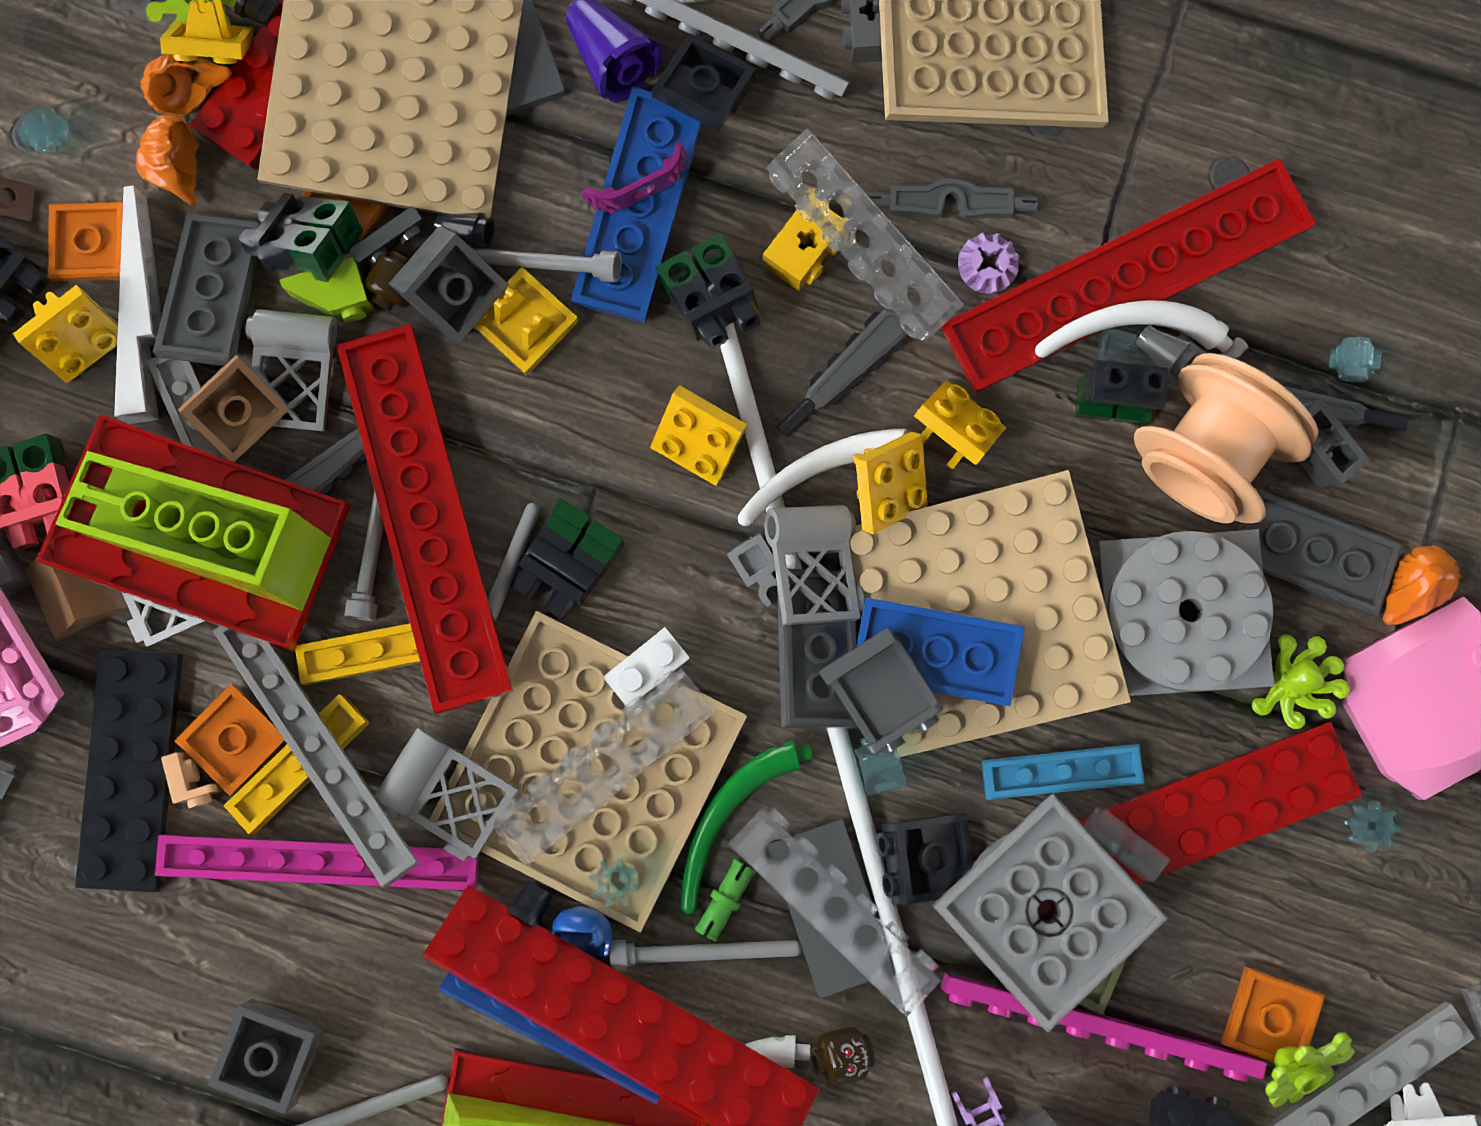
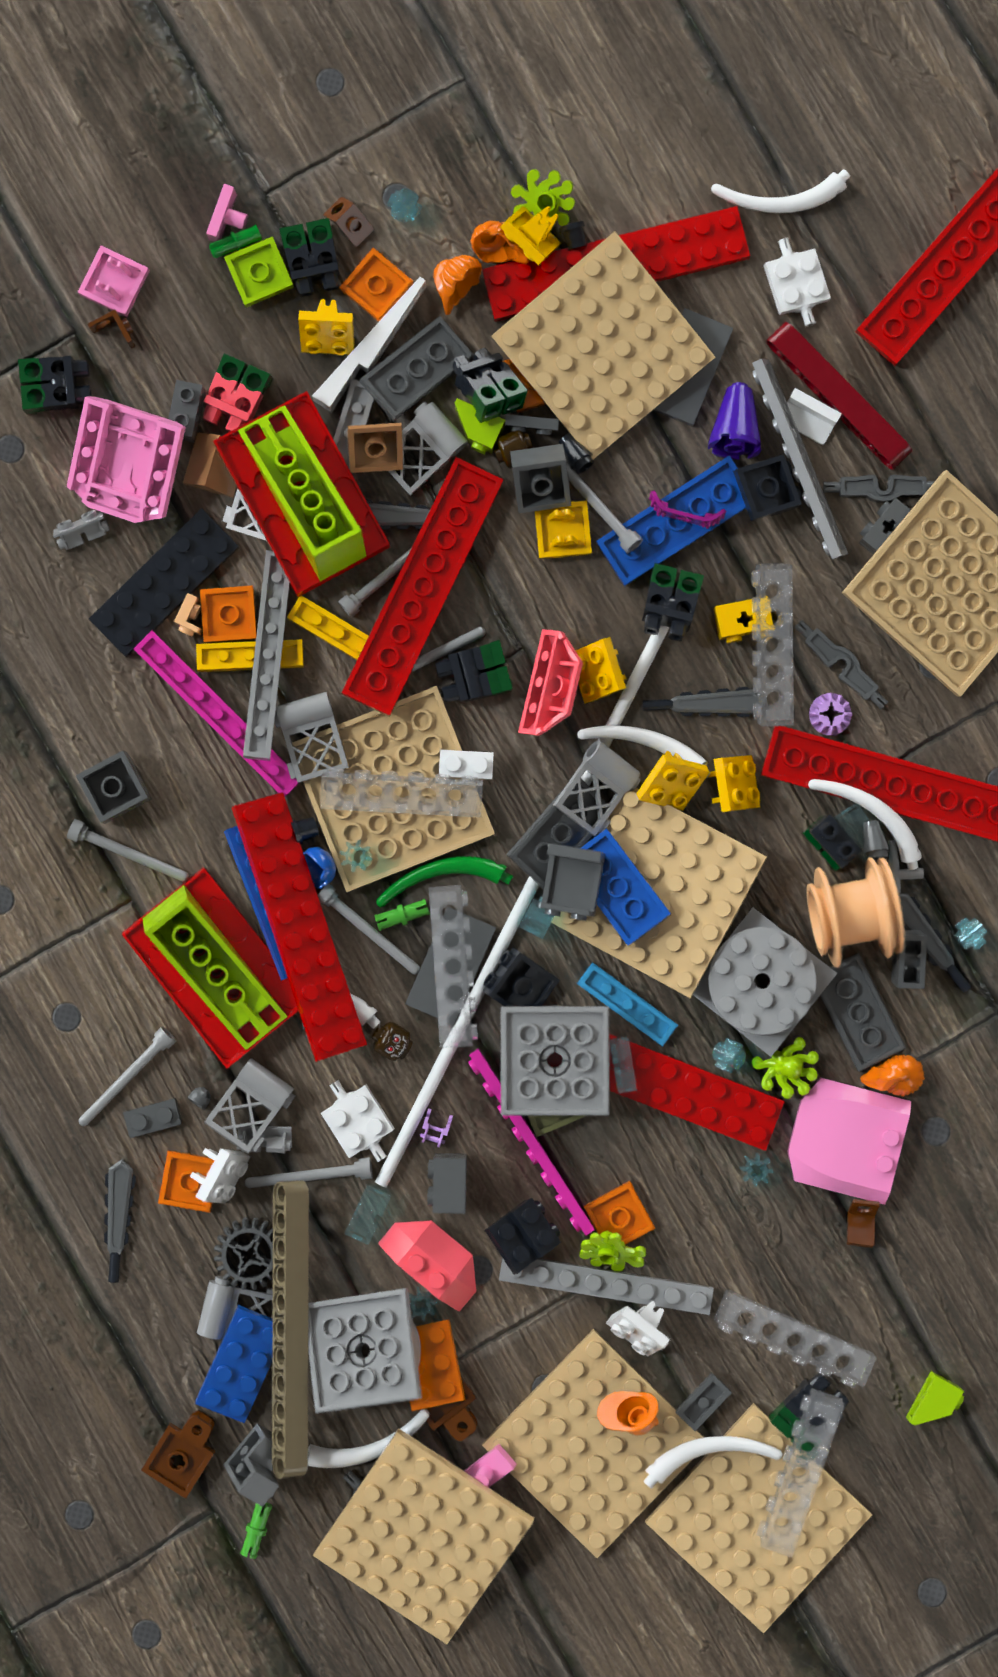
camera: 45 degrees right, 5 degrees up
(661, 493) = (551, 684): none -> coral wedge
(754, 564) = (567, 760): light grey plate -> none
(1226, 726) = (729, 1055): none -> clear light blue gear

